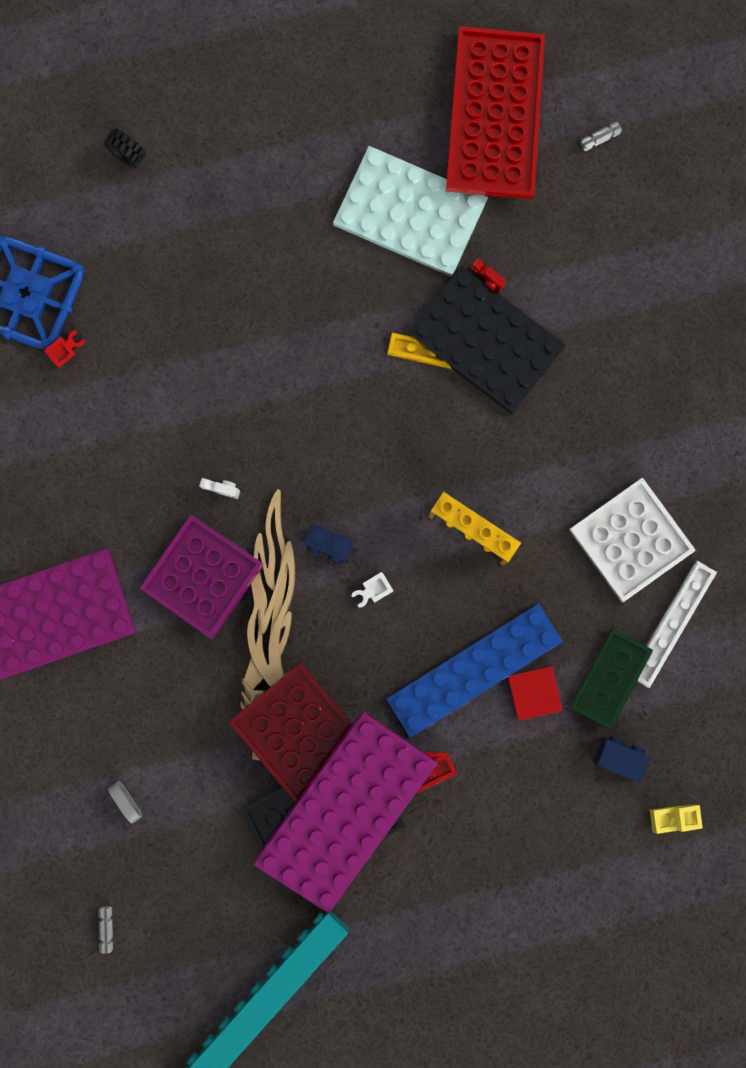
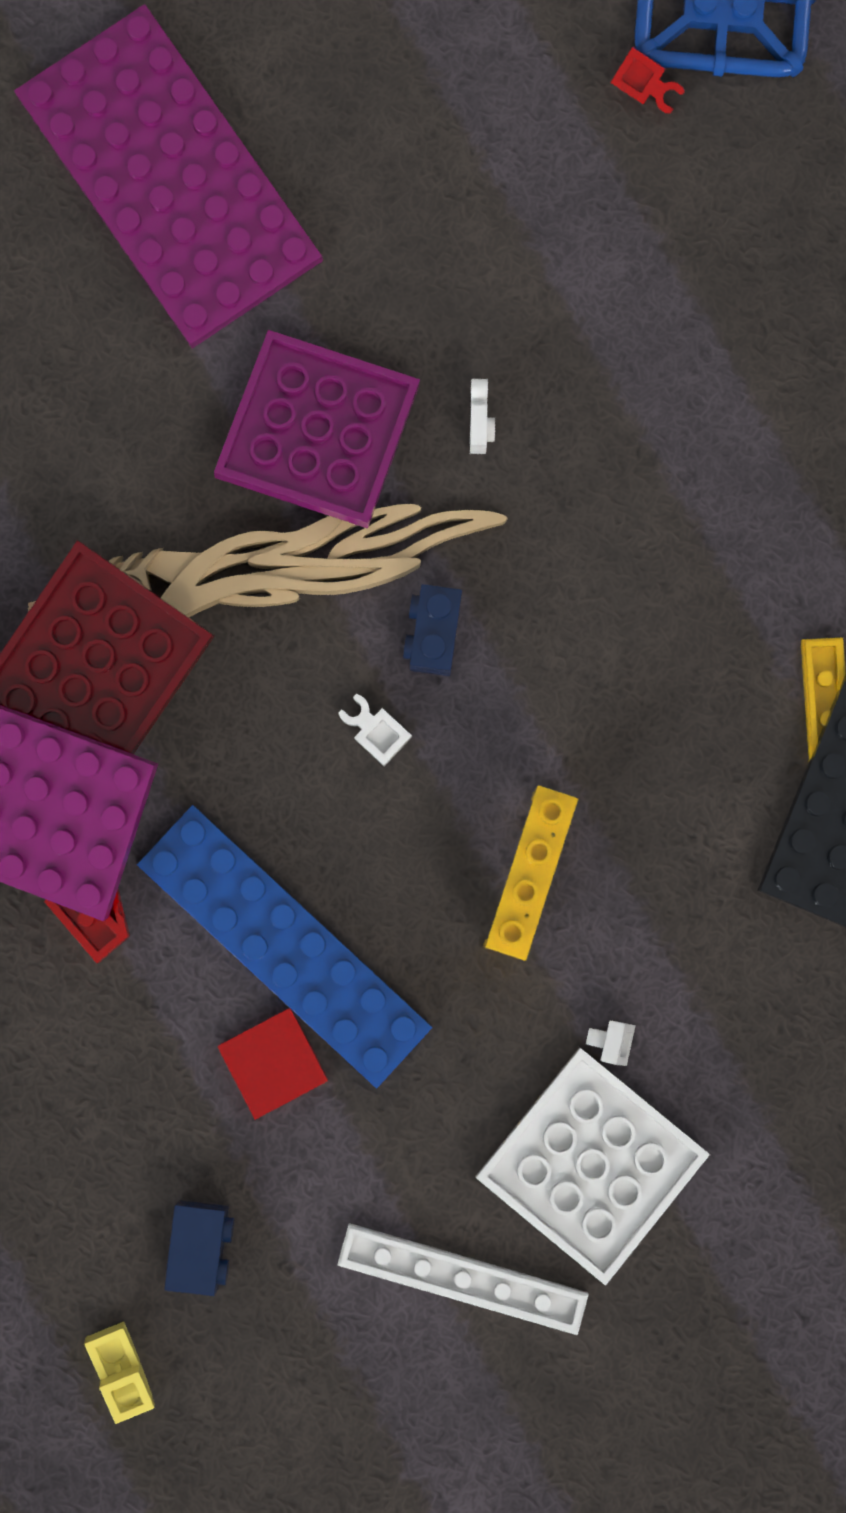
camera: 75 degrees right, 0 degrees up
(570, 511) = (615, 1042): none -> white tile
(611, 679) = (333, 1193): dark green tile -> none

